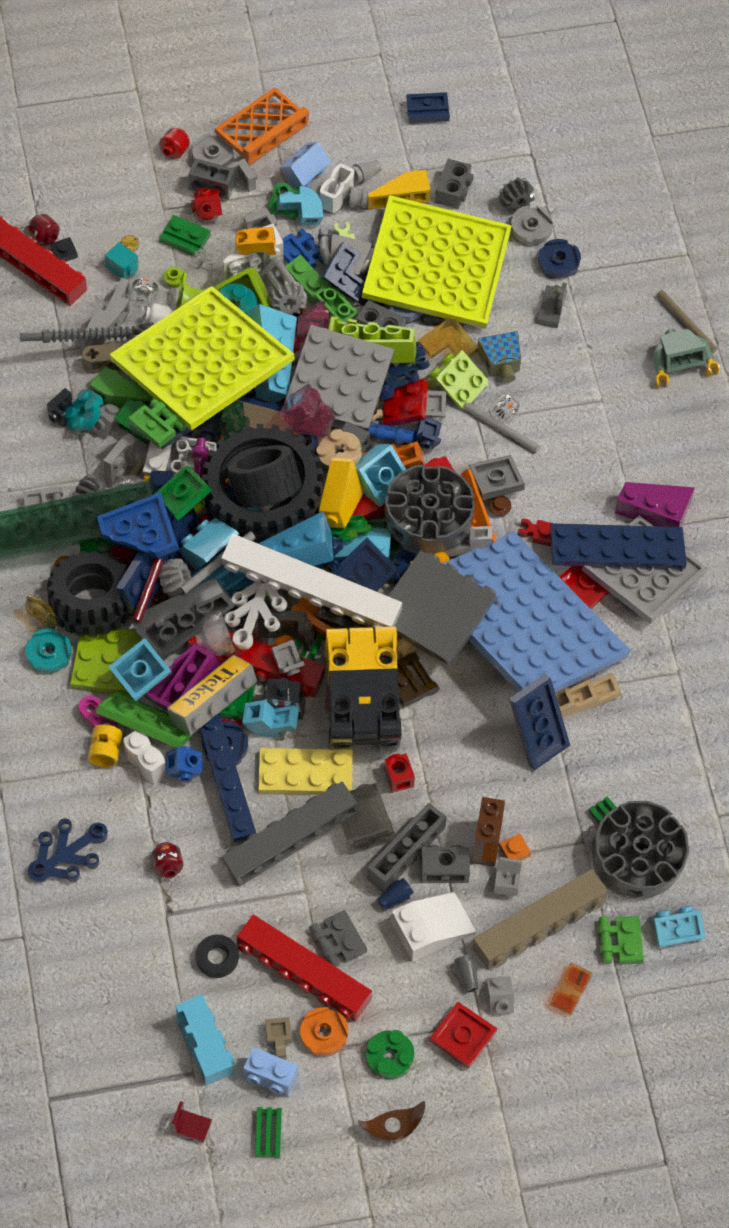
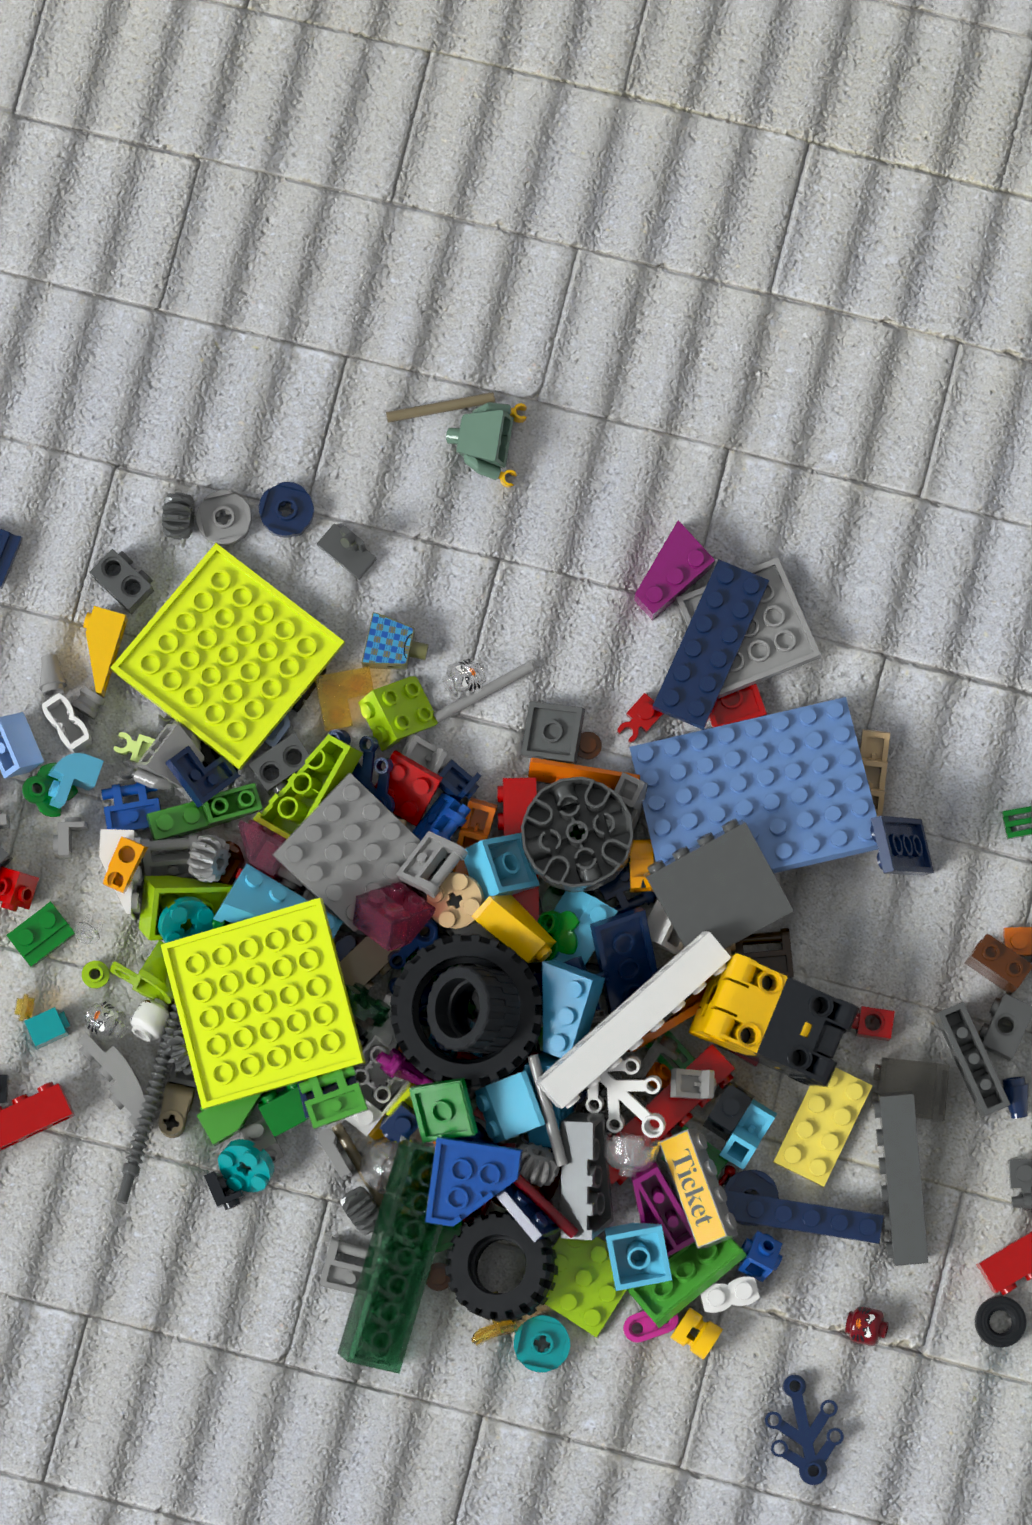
camera: 60 degrees left, 20 degrees up
(357, 423) = (426, 859): none -> light grey plate

